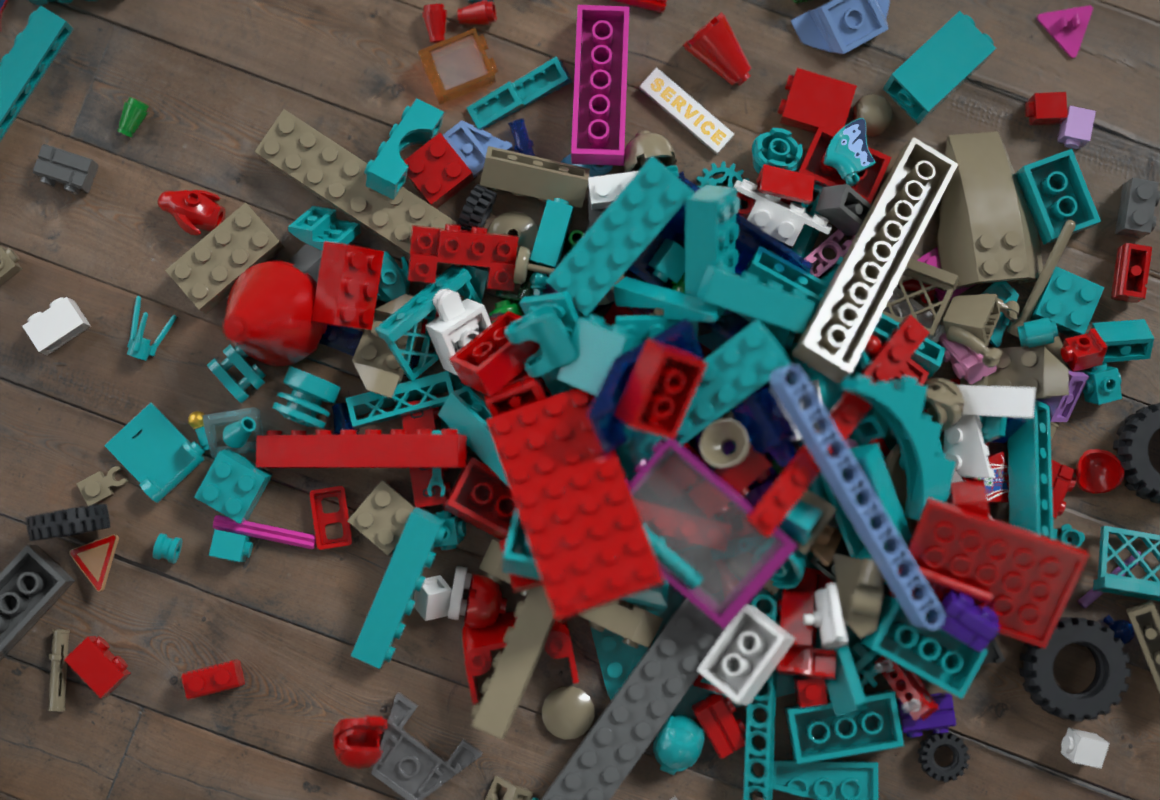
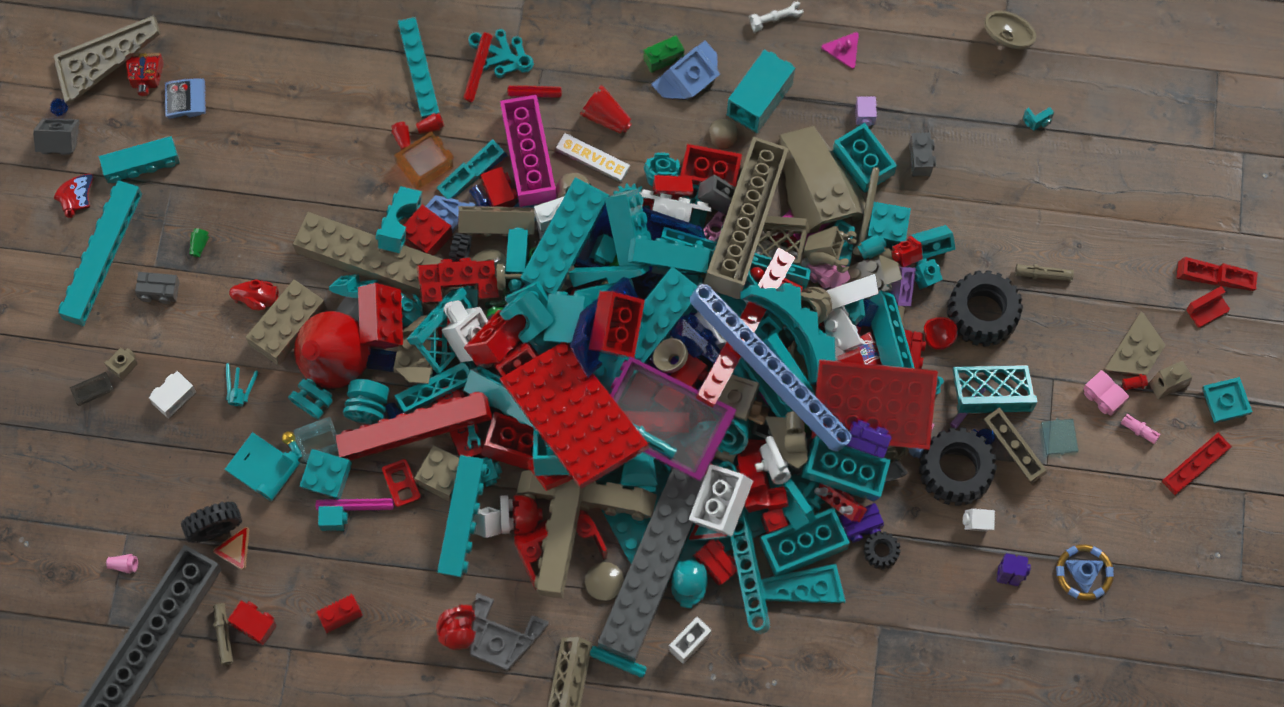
camera: 15 degrees left, 15 degrees down
(98, 486) = (224, 496): dark tan plate -> none
(167, 548) = (285, 530): teal wheel -> none
(237, 433) = (322, 436): teal cone -> none
(548, 130) = (498, 189): none -> red brick
(800, 521) = (733, 395): teal brick -> none
(816, 101) = (679, 130): red brick -> none
(850, 152) = (712, 156): teal arm -> none
(956, 585) = (856, 416): red bar -> none
(1047, 108) = (842, 103): red brick -> none
(1131, 273) = (928, 196): red brick -> none

